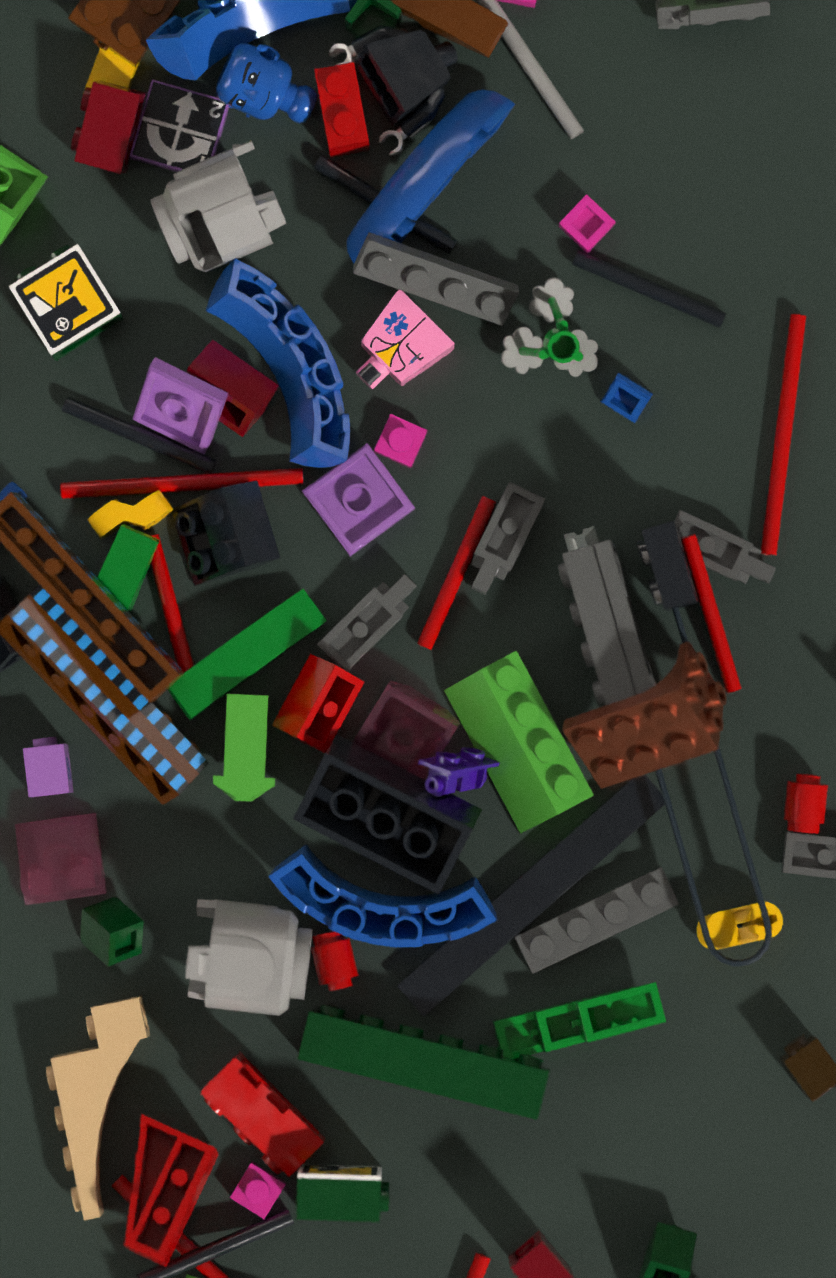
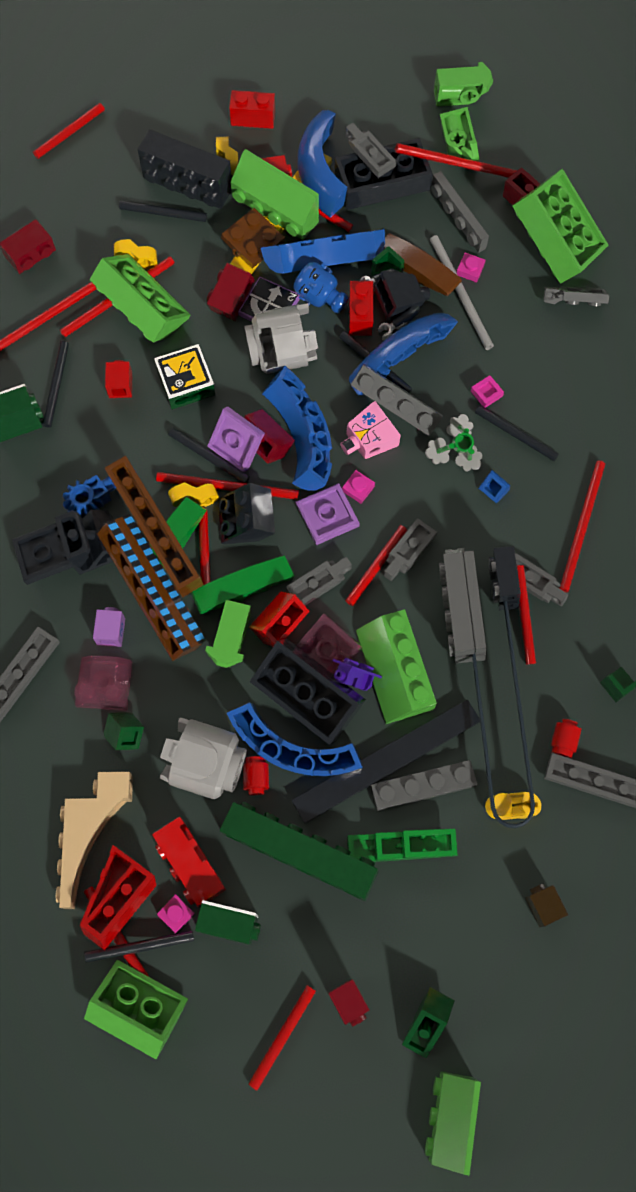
camera: 10 degrees right, 15 degrees down
(655, 728) = (479, 664): copper bracket -> none

